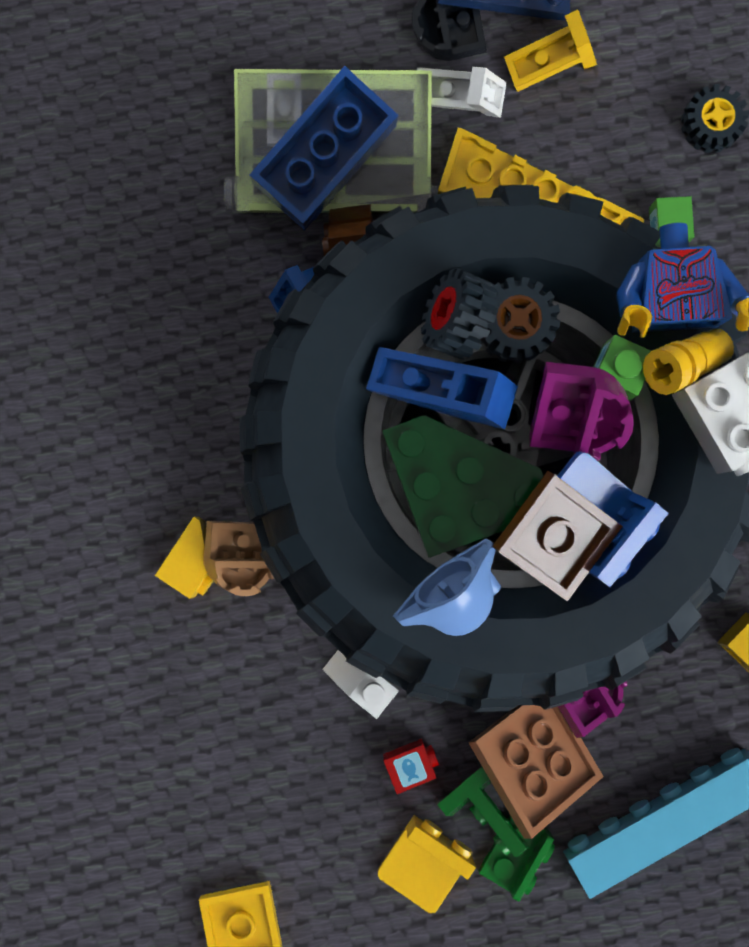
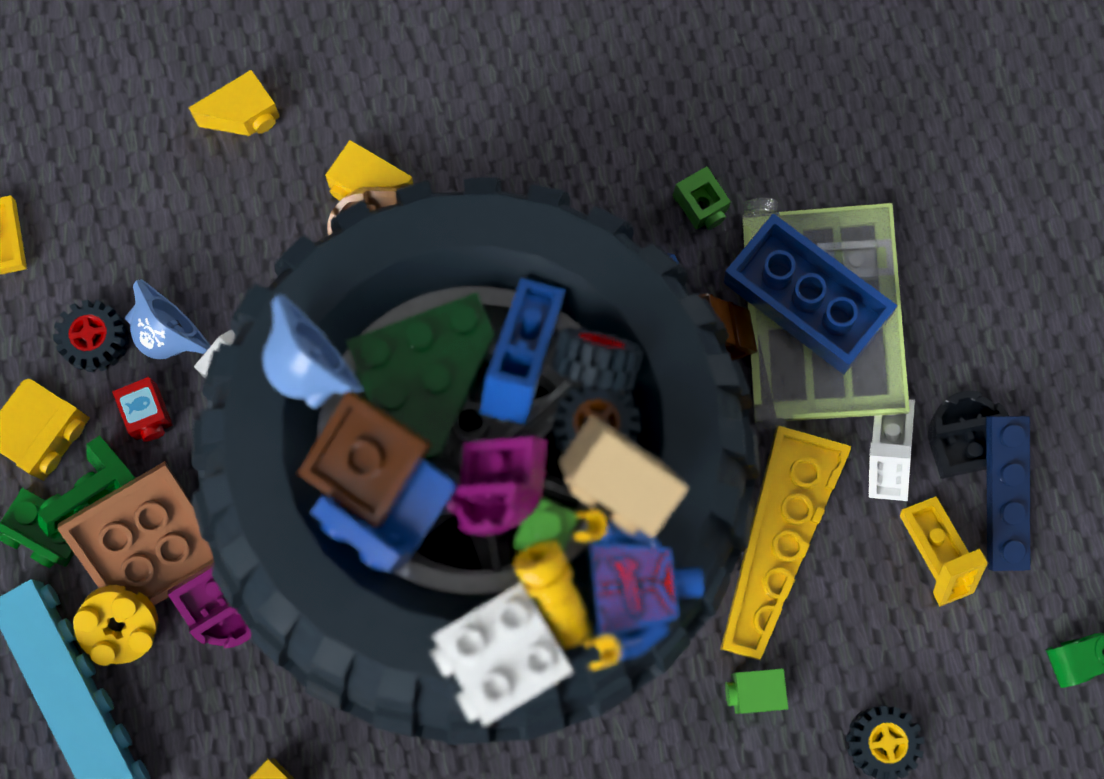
camera: 80 degrees right, 10 degrees down
(115, 684) = (237, 107): none -> yellow slope
(210, 240) = (702, 187): none -> bright green brick
(333, 755) = (155, 325): none -> medium blue hat
(340, 829) = (81, 328): none -> black wheel
(588, 290) = (622, 477): none -> tan brick
(623, 785) = (107, 645): none -> yellow plate

